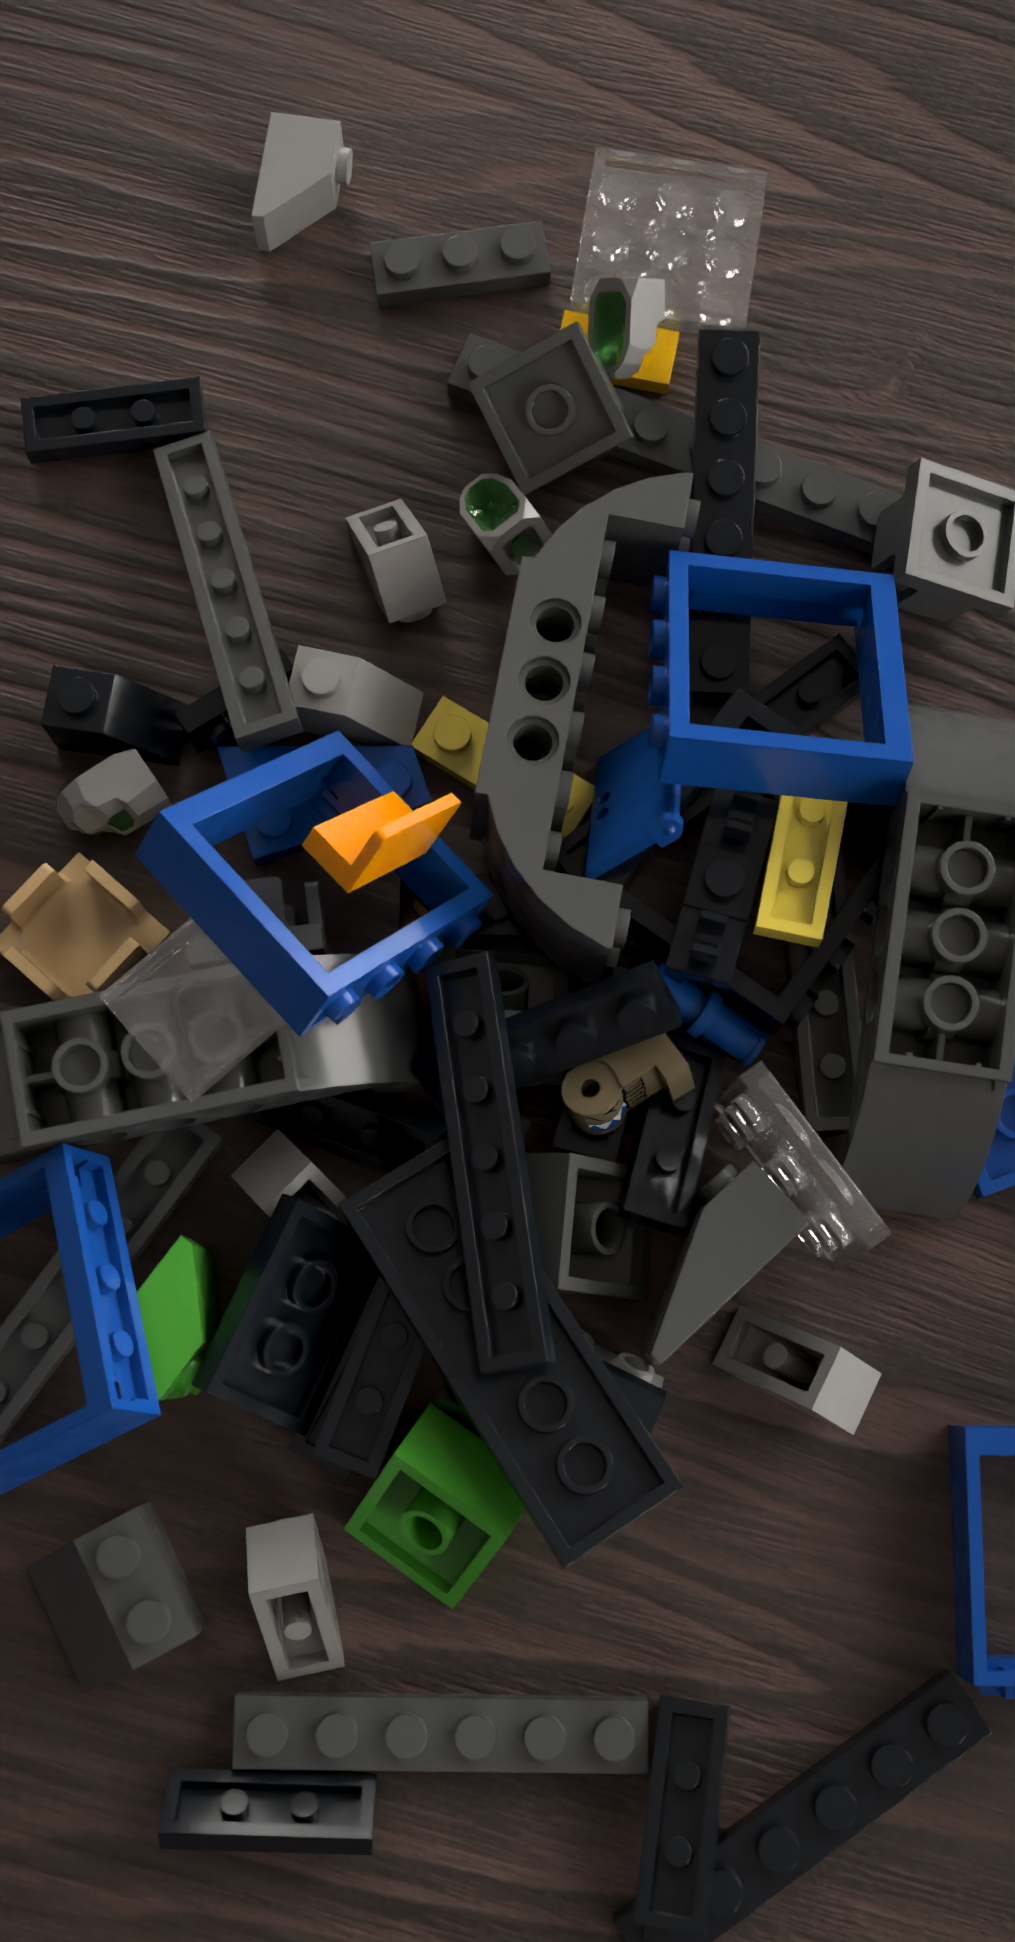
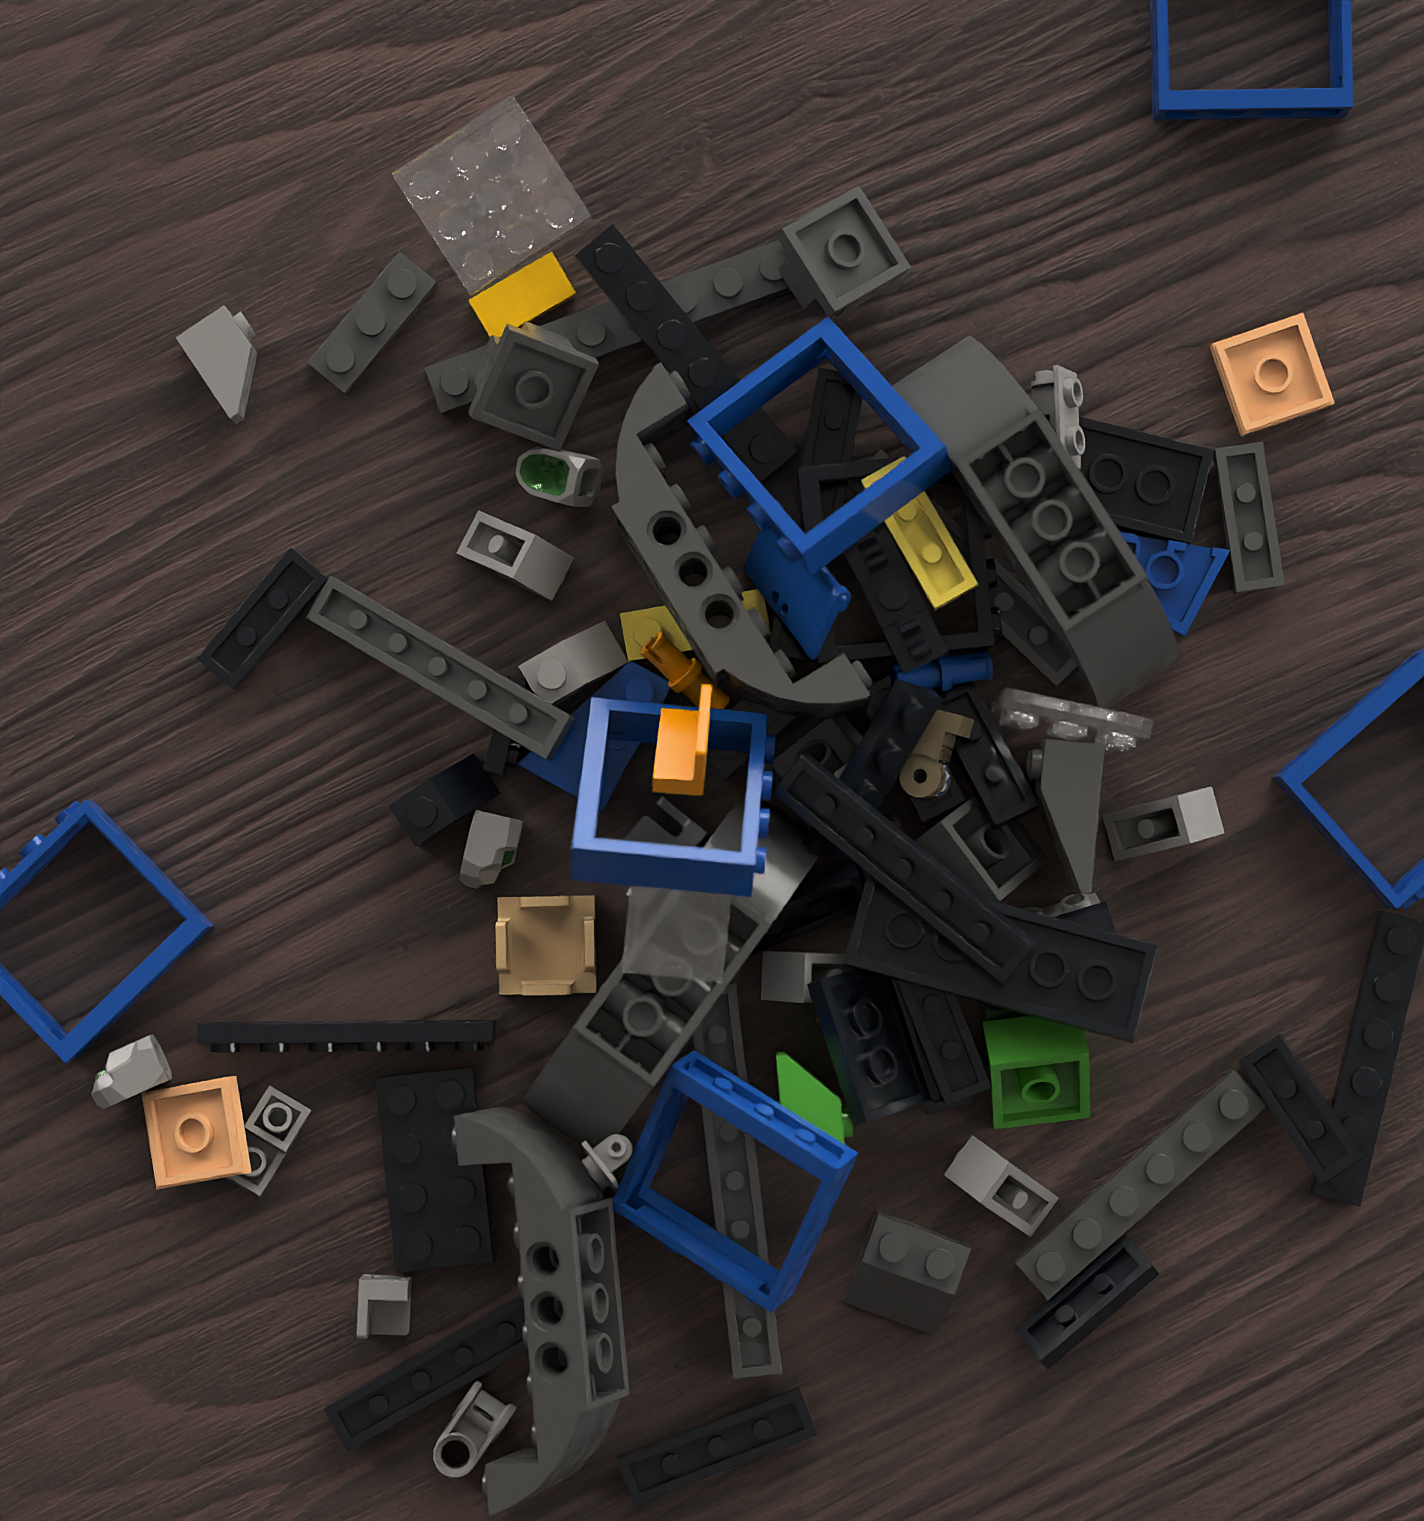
camera: 40 degrees left, 10 degrees up
(449, 776) = (682, 672): none -> light orange pin
(625, 322) = (520, 284): light grey rock -> none

